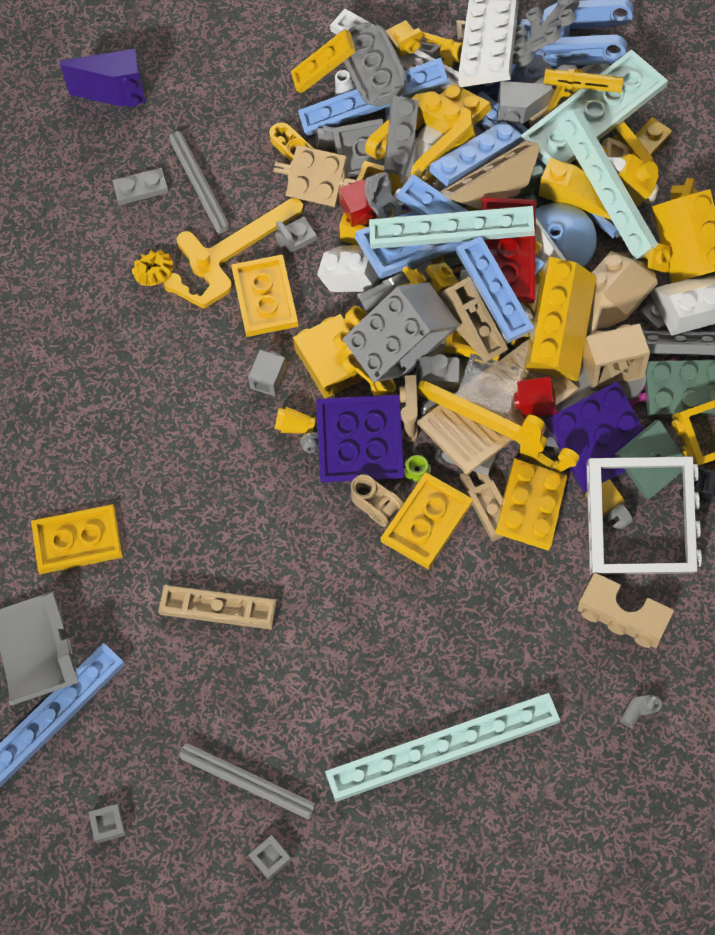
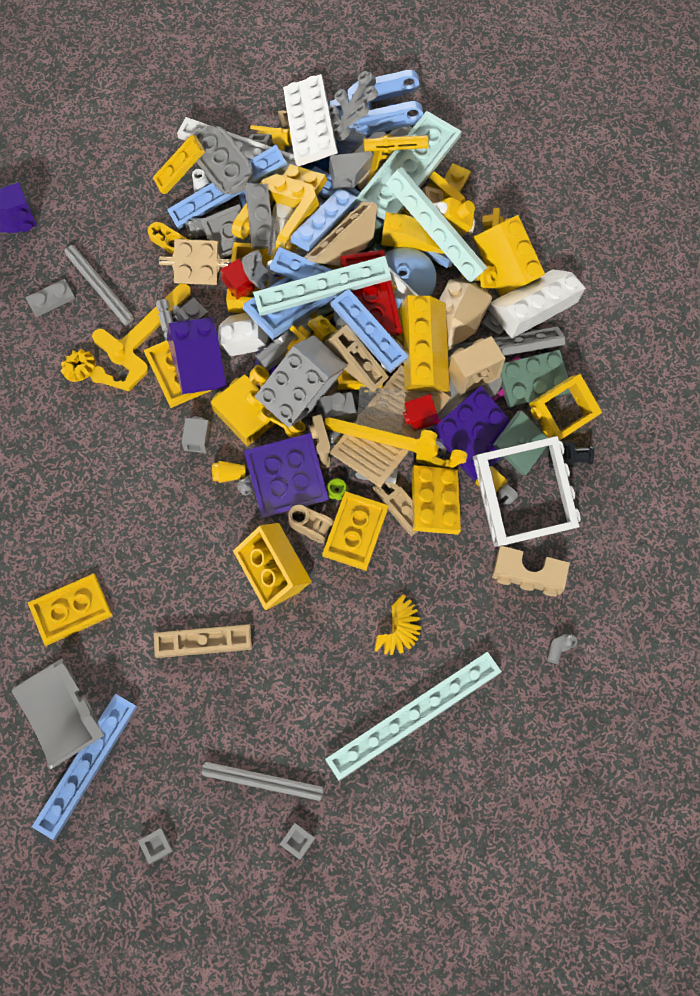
camera: 20 degrees left, 5 degrees up
(266, 239) = (164, 315): none -> light grey axle
(289, 281) = (196, 355): none -> dark purple slope
(318, 538) = (271, 565): none -> yellow slope
(405, 38) = (242, 133): yellow bracket -> none
(454, 645) = (402, 630): none -> yellow hair

